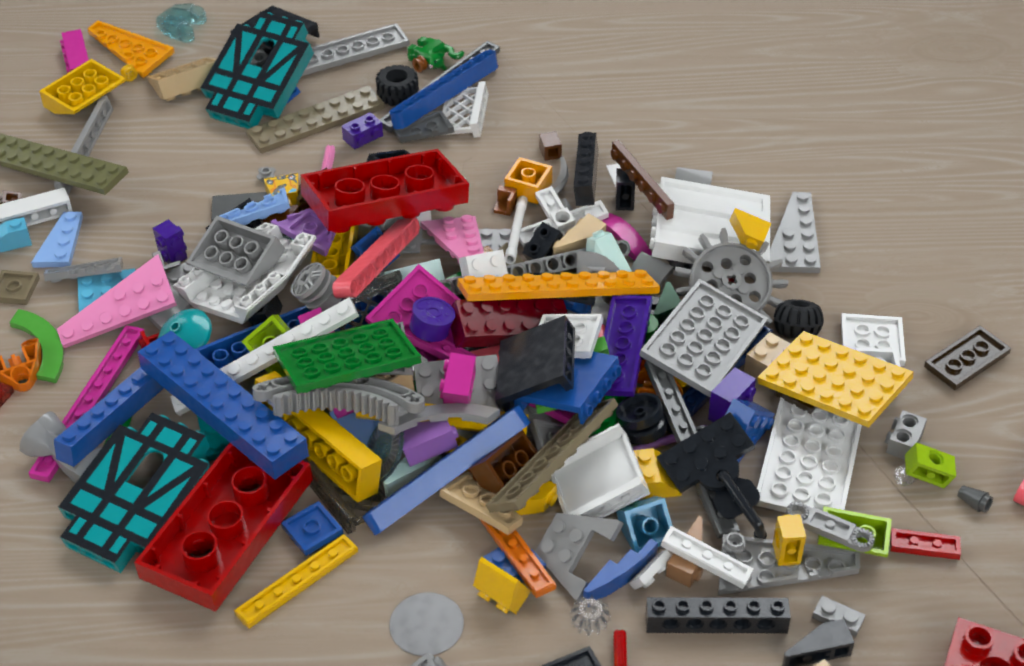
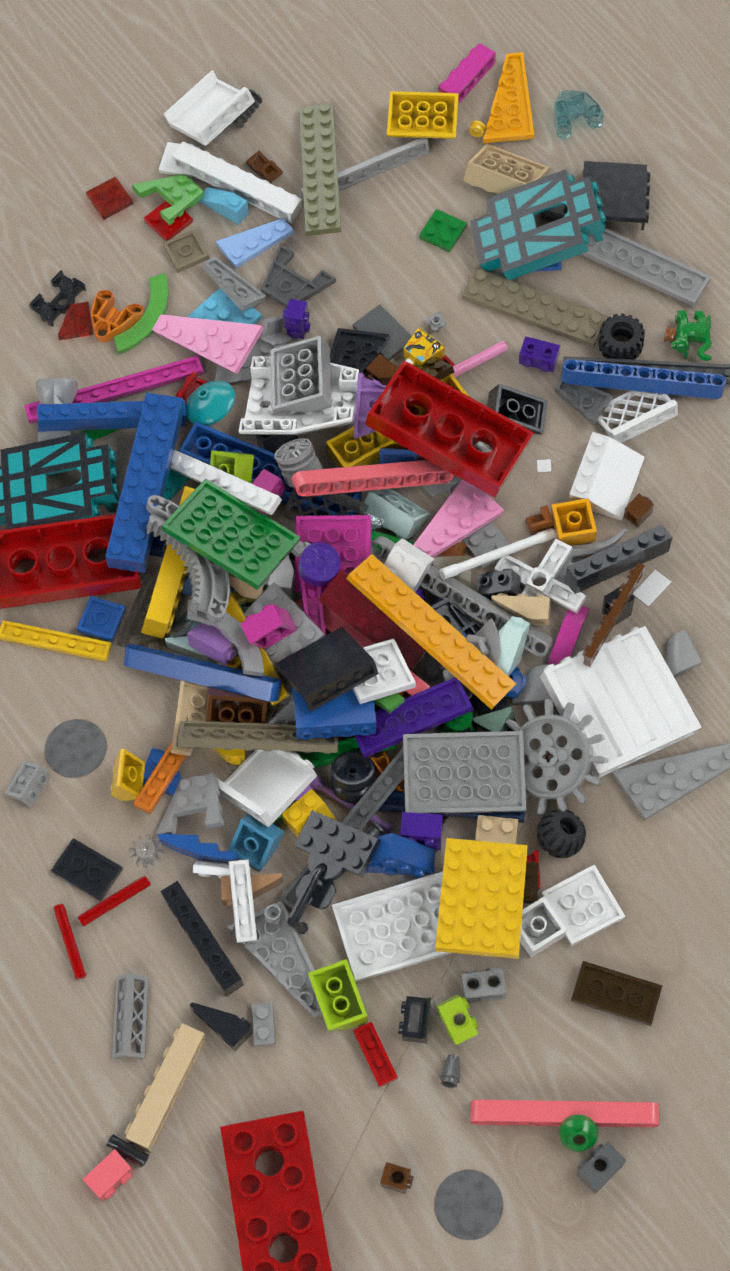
camera: 60 degrees right, 20 degrees up
(127, 240) = (286, 284): none -> dark grey wing
(190, 133) = (443, 230): none -> green plate
(269, 205) = (372, 350): light blue wing -> none
(498, 148) = (607, 476): none -> white slope
(749, 229) = (596, 738): yellow slope -> none
(789, 540) = (291, 950): yellow brick -> none
(832, 527) = (321, 973): light grey plate -> none
(909, 495) = (416, 1019): none -> black window

